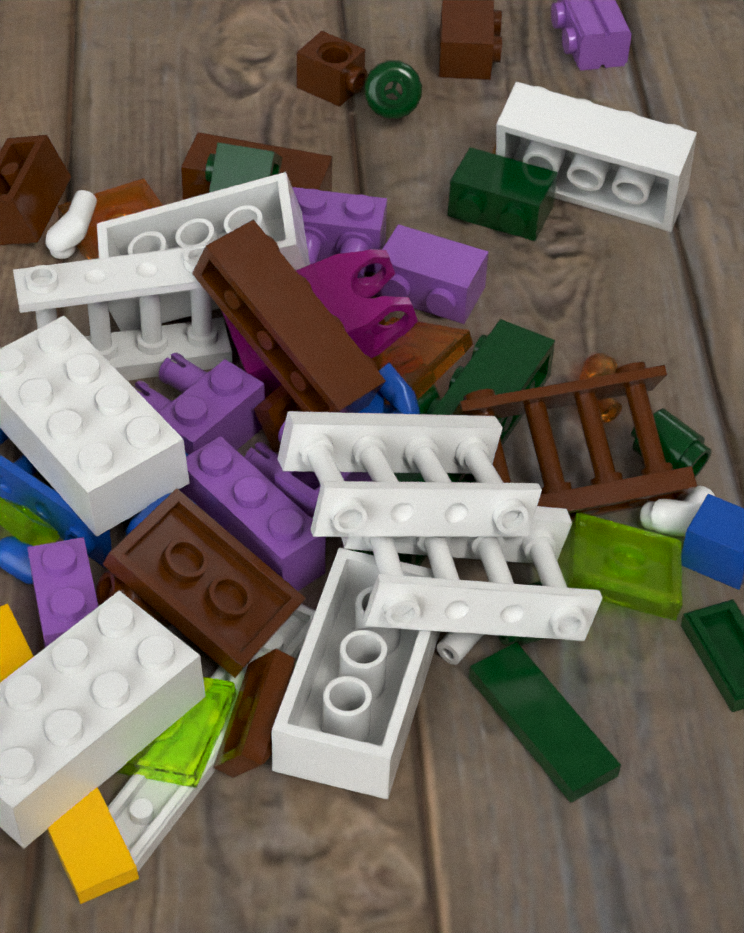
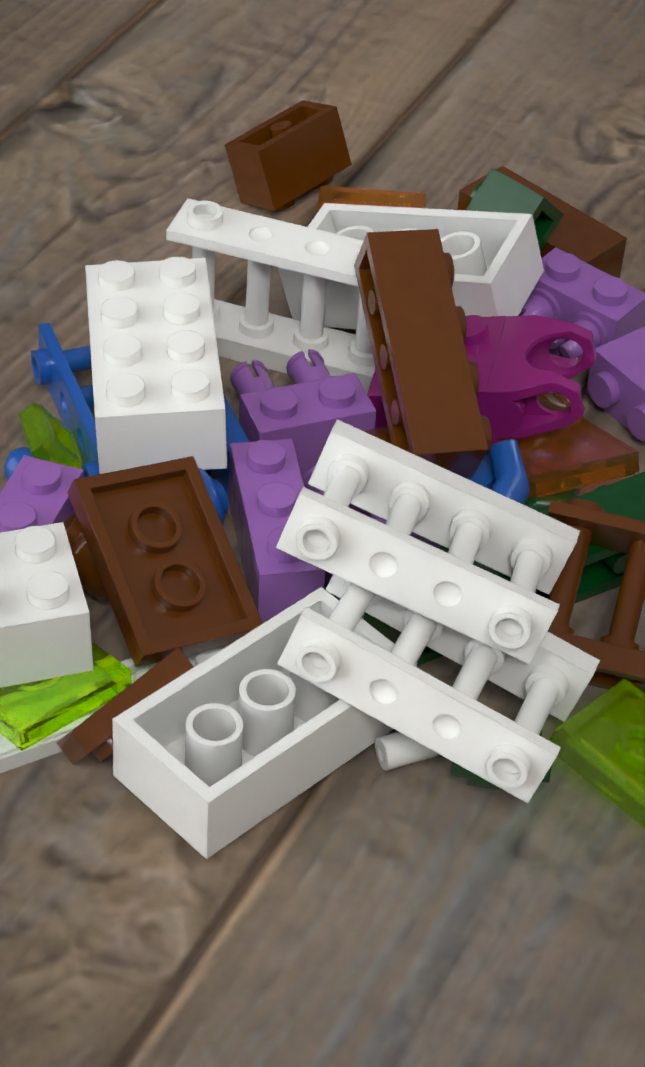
camera: 30 degrees right, 5 degrees down
(72, 227) = (304, 208): white arm -> none
(544, 722) = (432, 869): dark green tile -> none

